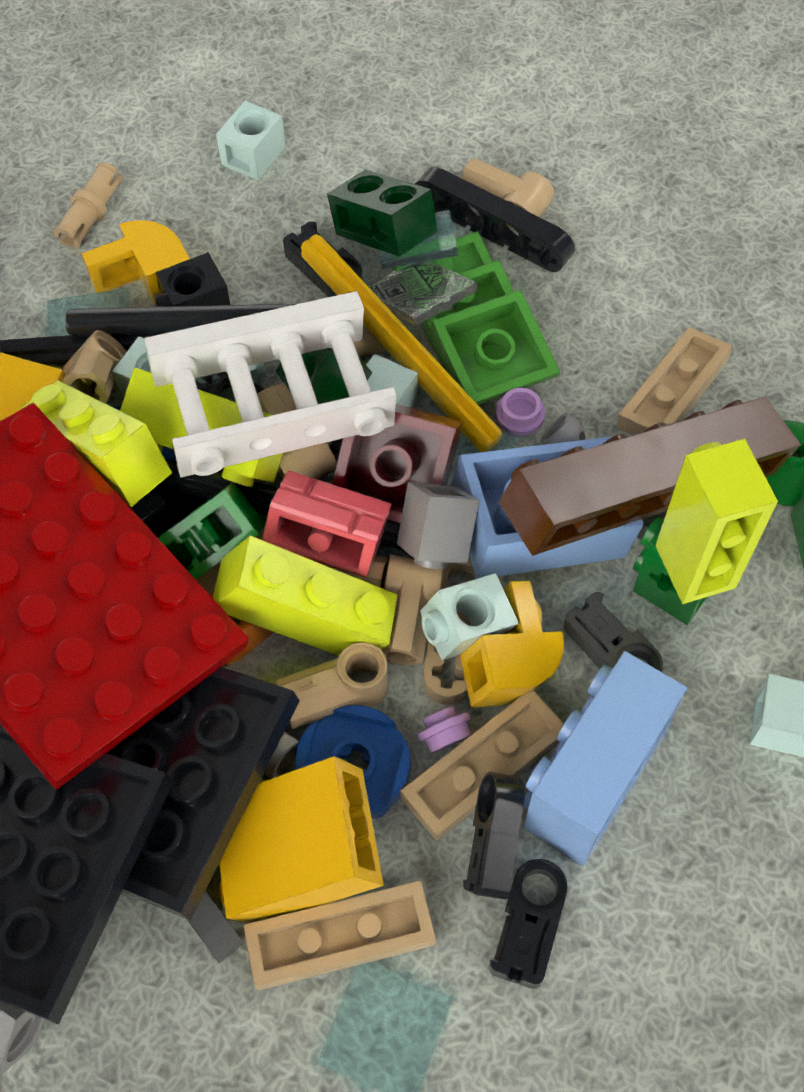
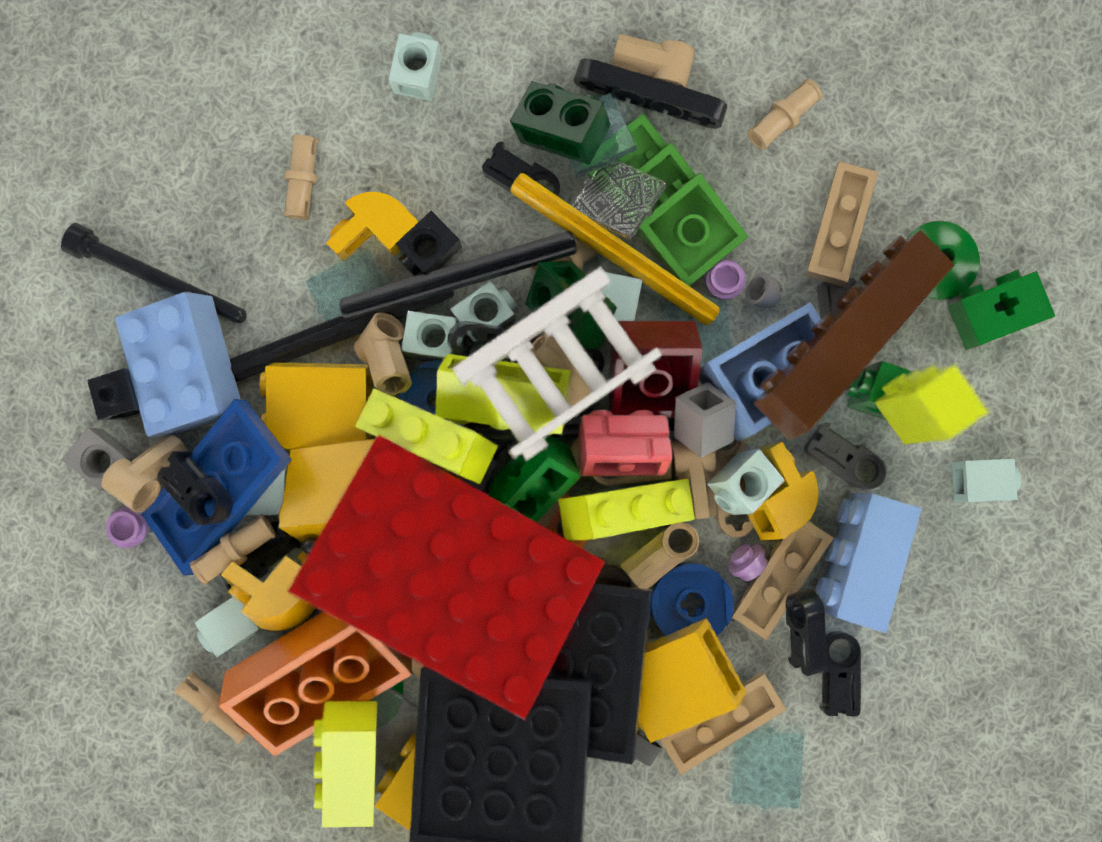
camera: 20 degrees left, 25 degrees up
(638, 272) = (785, 114): none -> tan pin

